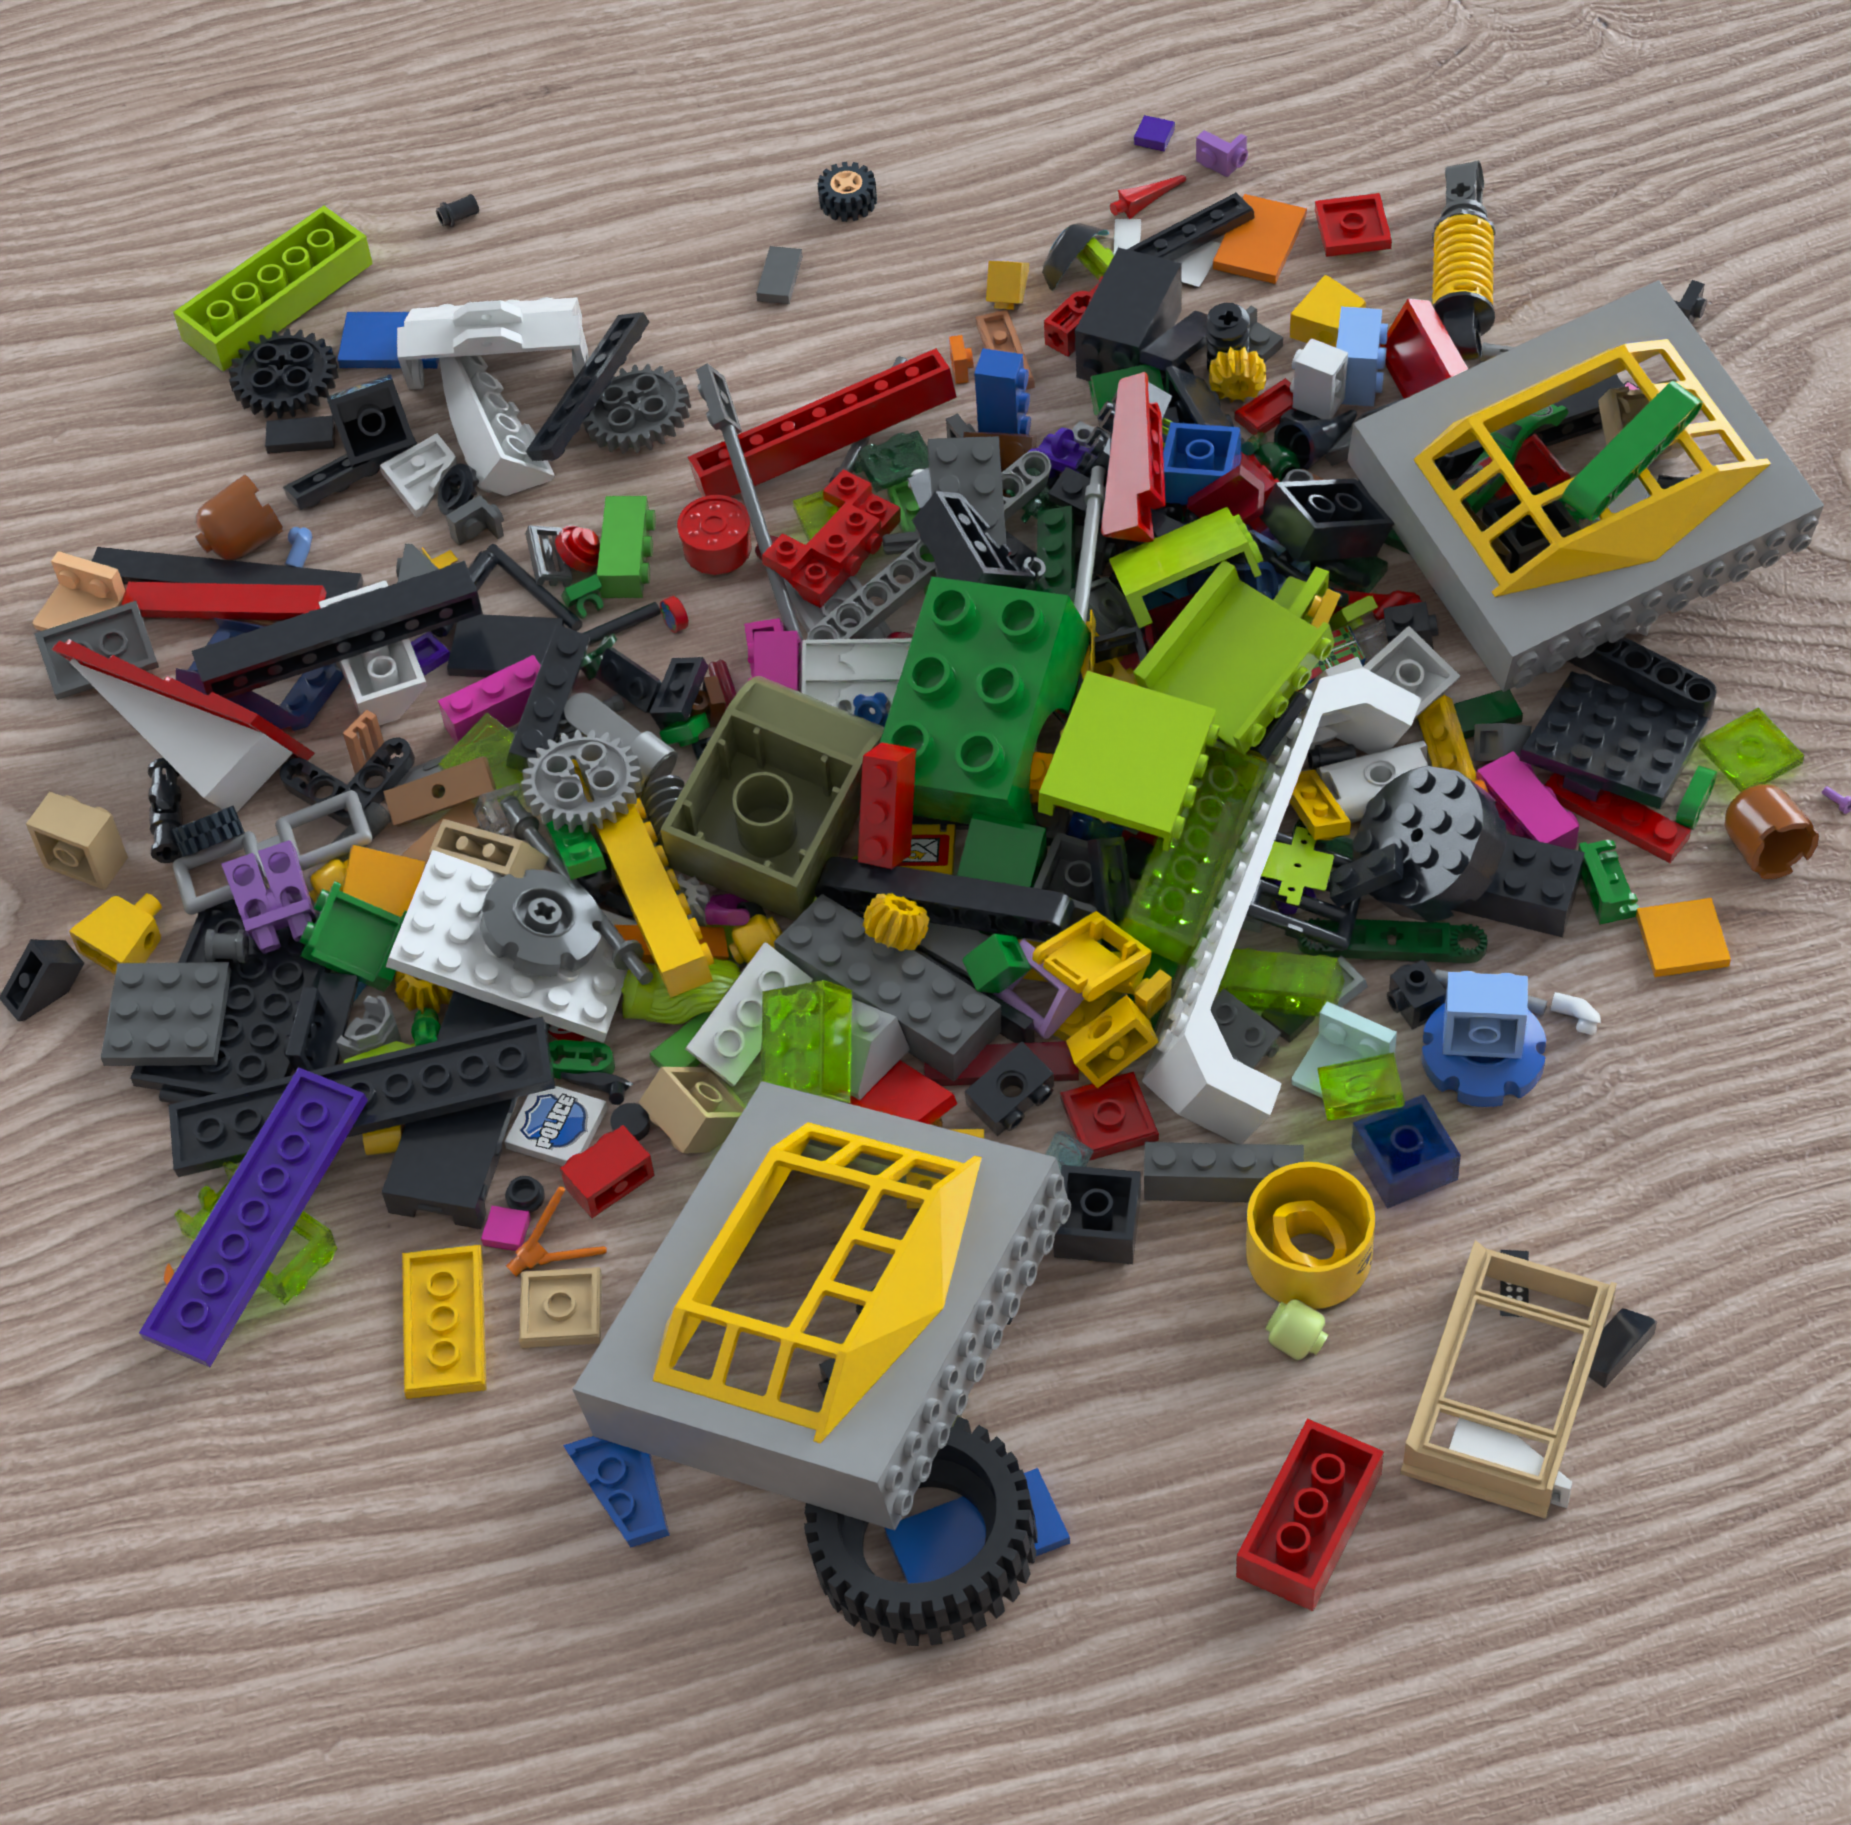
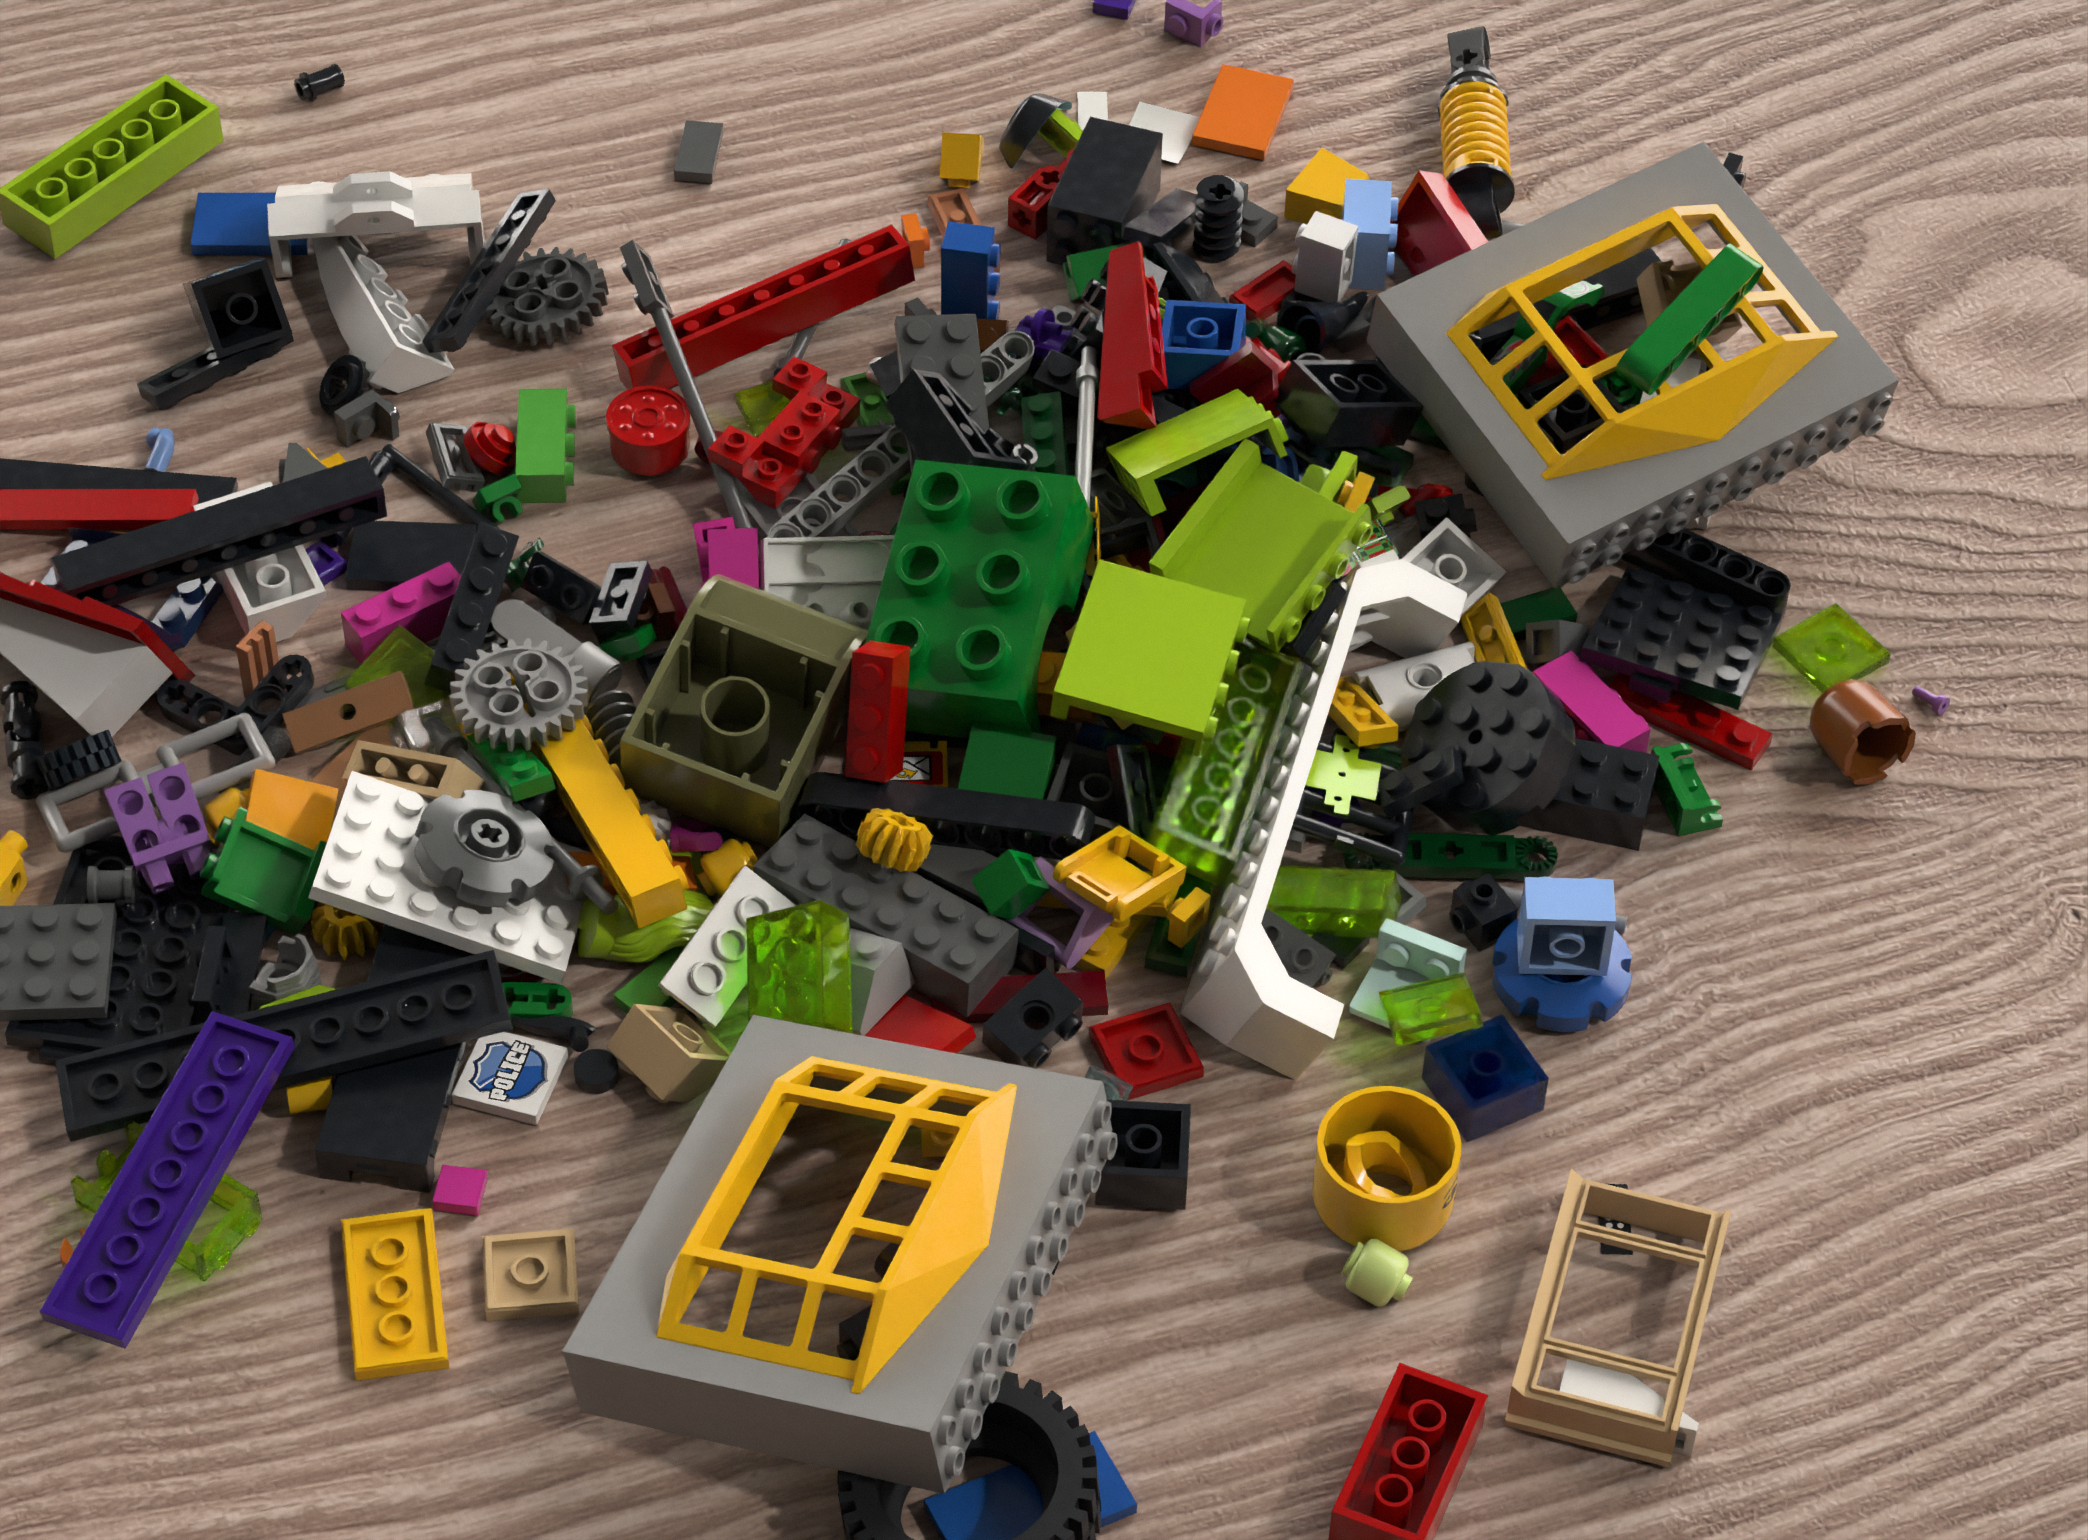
camera: 10 degrees left, 5 degrees down
(235, 521) = (87, 420): dark orange cylinder -> none
(283, 373) = (128, 260): black gear -> none
(300, 434) = (152, 327): black tile -> none
(419, 472) = (296, 367): white wing -> none
(425, 1027) = (351, 969): green axle -> none
(525, 1194) = (479, 1151): black plate -> none
(532, 1252) = (496, 1214): orange plant -> none
(607, 1171) = (574, 1123): red brick -> none
(623, 622) = (552, 526): black bar -> none
(624, 1486) = (619, 1465): blue wing -> none
(674, 614) = (606, 518): red tile -> none
(847, 191) = (770, 61): black wheel -> none
(877, 702) = (855, 604): blue plate -> none
(893, 460) = (847, 349): clear green bracket -> none
(1112, 1041) = (1146, 967): yellow brick -> none
(1137, 198) = (1099, 70): red piece -> none
(1197, 229) = (1177, 99): black tile -> none
(1211, 1169) = (1266, 1104): dark grey brick -> none
(1237, 374) = (1231, 254): yellow gear -> none
(1321, 756) = (1363, 660): black pin -> none
(1353, 224) = (1346, 96): red plate -> none
(1577, 1008) = (1662, 924): white arm -> none
(1619, 1344) = (1737, 1278): black slope -> none
(1683, 937) = (1772, 847): light orange tile -> none
(1696, 797) = (1776, 698): green beam -> none

